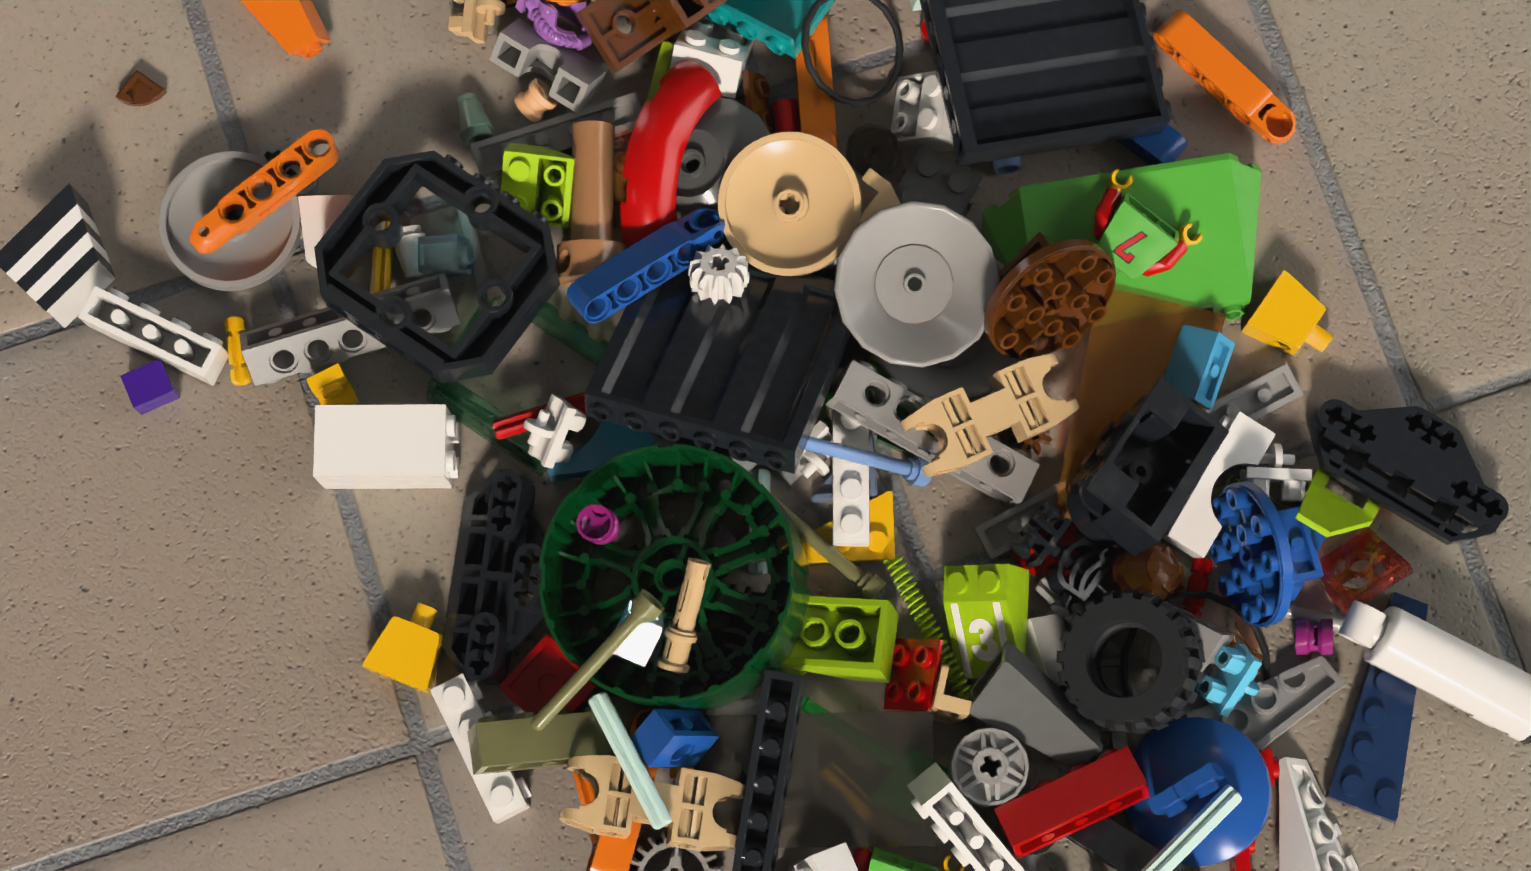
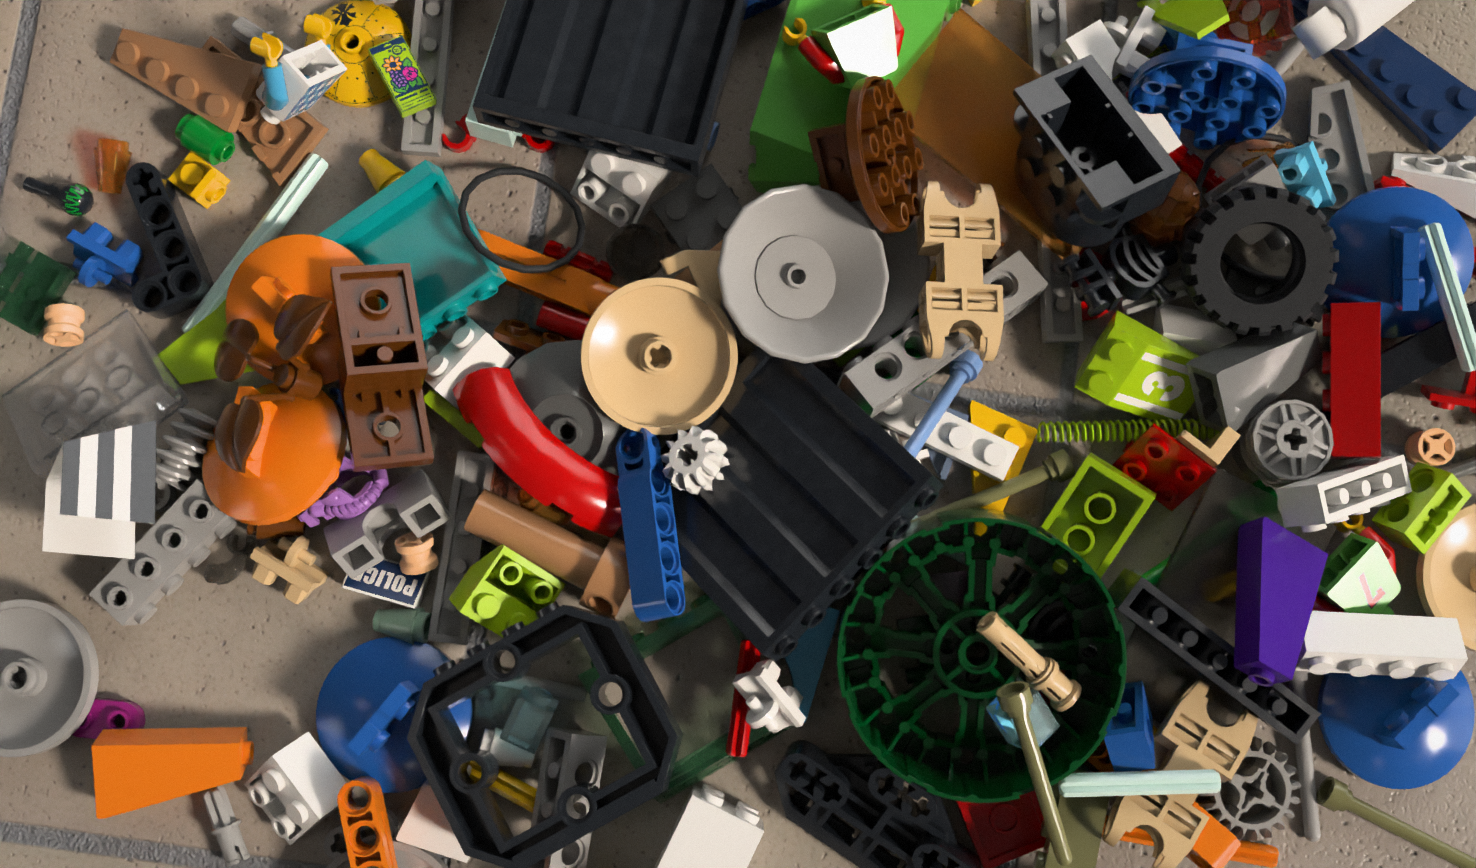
camera: 70 degrees left, 5 degrees up
(245, 63) = (225, 826): none -> light grey axle
(301, 101) = (296, 788): none -> white slope
(390, 123) = (370, 708): none -> blue bracket
(500, 92) = (390, 584): none -> slope
(592, 523) = (906, 713): magenta wheel -> none
(840, 805) = (1273, 599): none -> dark purple slope
(843, 112) = (581, 260): none -> red axle
(1199, 364) = (998, 57): dark azure panel -> none
(1314, 636) = (1298, 81): magenta wheel -> none

